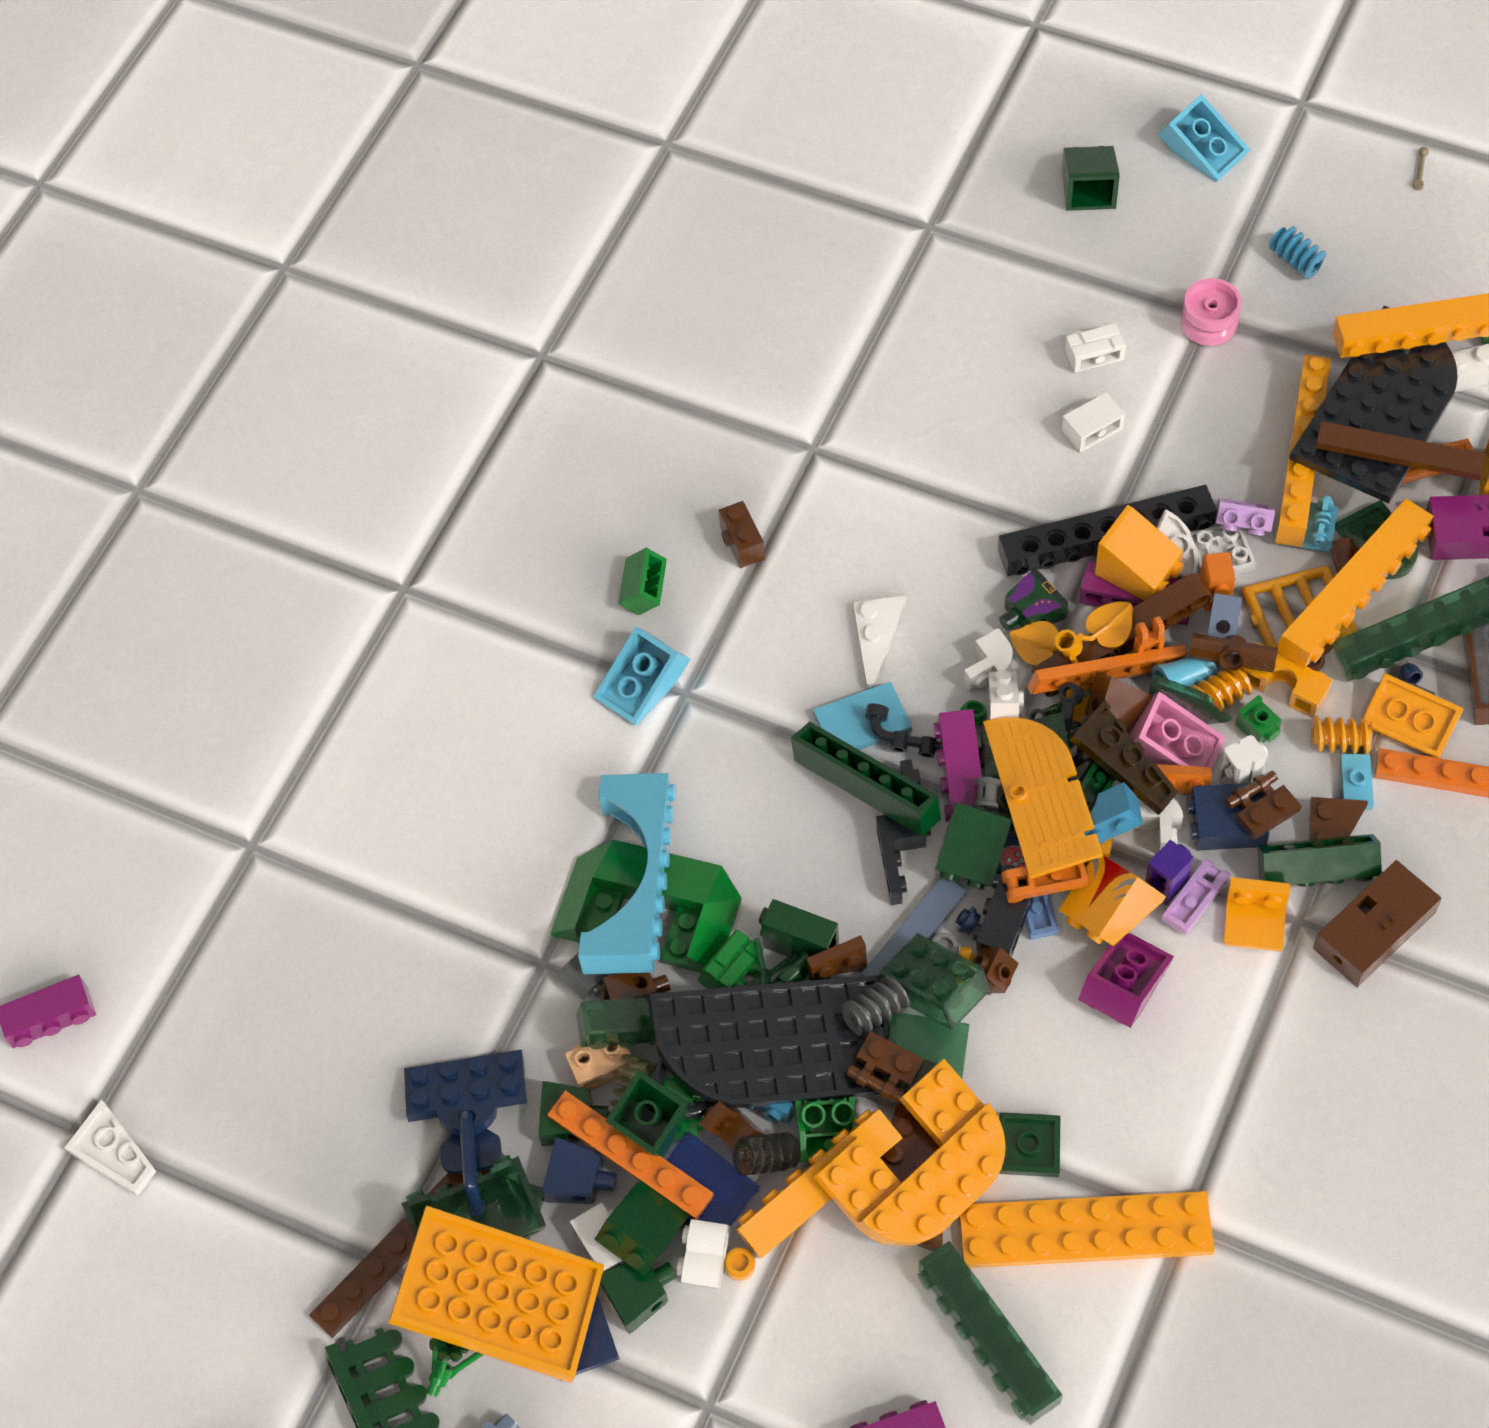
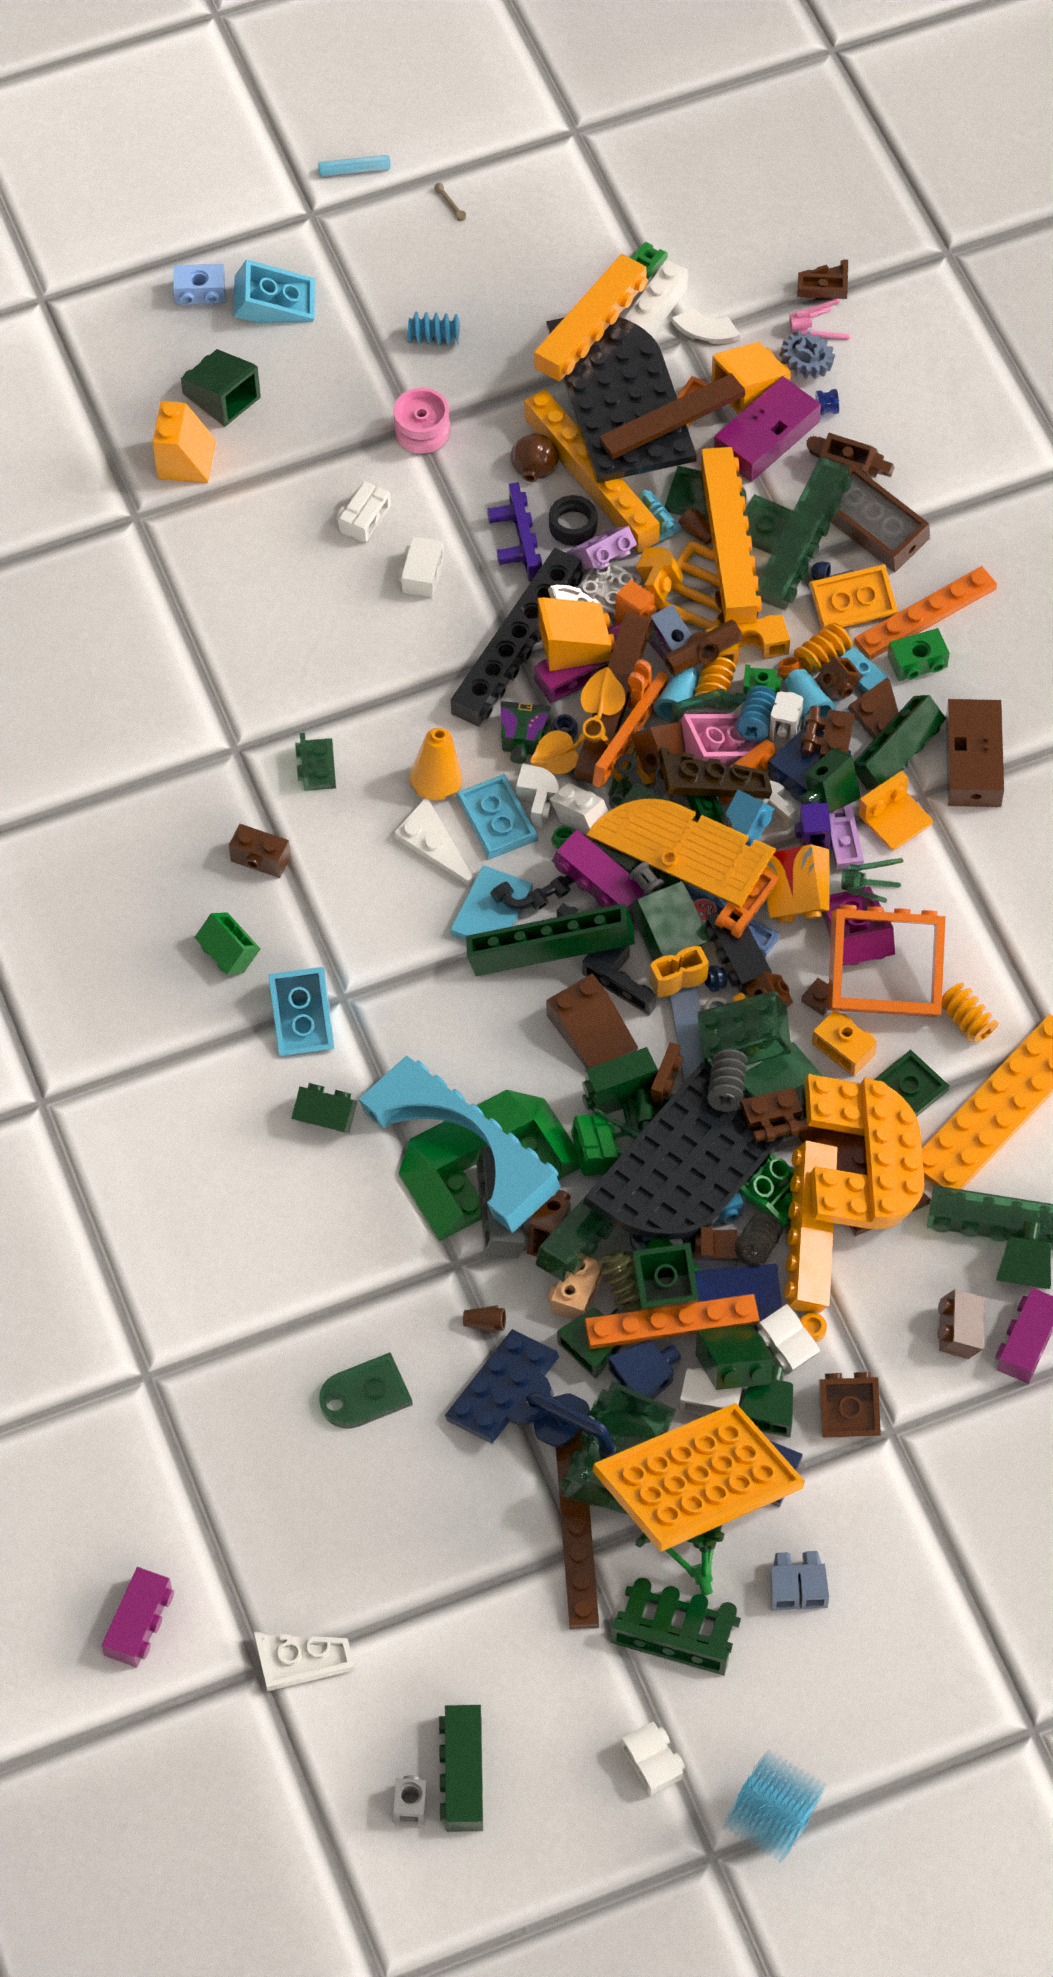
camera: 50 degrees left, 0 degrees up
(46, 1327) = (414, 1812): none -> light grey brick
(117, 1346) = (462, 1768): none -> dark green brick
(375, 998) = (366, 1393): none -> clear green tile
(512, 1024) = (485, 1318): none -> reddish brown cone
(573, 762) = (324, 1109): none -> dark green brick
(693, 1353) = (849, 1405): none -> reddish brown plate
(834, 871) = (590, 1022): none -> reddish brown slope
(849, 1374) = (961, 1323): none -> brick
(855, 504) = (317, 763): none -> clear green bracket
(932, 578) = (436, 767): none -> light orange cone
(937, 888) = (673, 972): none -> light orange brick
(943, 654) = (497, 816): none -> medium azure tile
(958, 1374) = (1026, 1258): none -> dark green torso
(1010, 194) = (182, 444): none -> light orange slope
(1012, 1062) = (844, 1042): none -> light orange brick
(1037, 1008) = (817, 996): none -> reddish brown plate
(1069, 622) = (565, 721): none -> dark blue plate
(1071, 1061) = (900, 915): none -> orange window
(1134, 1128) = (966, 1015): none -> light orange piece
(1157, 92) = (199, 284): none -> light blue brick
(1162, 939) = (854, 879): none -> clear green plant
(1210, 437) = (523, 521): none -> dark purple plate
(1212, 742) = (756, 713): none -> dark azure piece
(1221, 845) = (832, 781): none -> dark green torso
(1253, 460) = (573, 504): none -> black tyre
(1270, 569) = (659, 572): none -> light orange brick
(1271, 406) = (534, 457): none -> reddish brown plant
(1288, 761) = (804, 685): none -> medium azure plant
(1298, 729) = (788, 665): none -> orange plate
(1326, 768) = (838, 678): none -> reddish brown brick
(1373, 89) = (354, 165): none -> medium azure axle
(1401, 594) = (765, 522): none -> clear green tile
(1412, 792) = (928, 645): none -> green brick

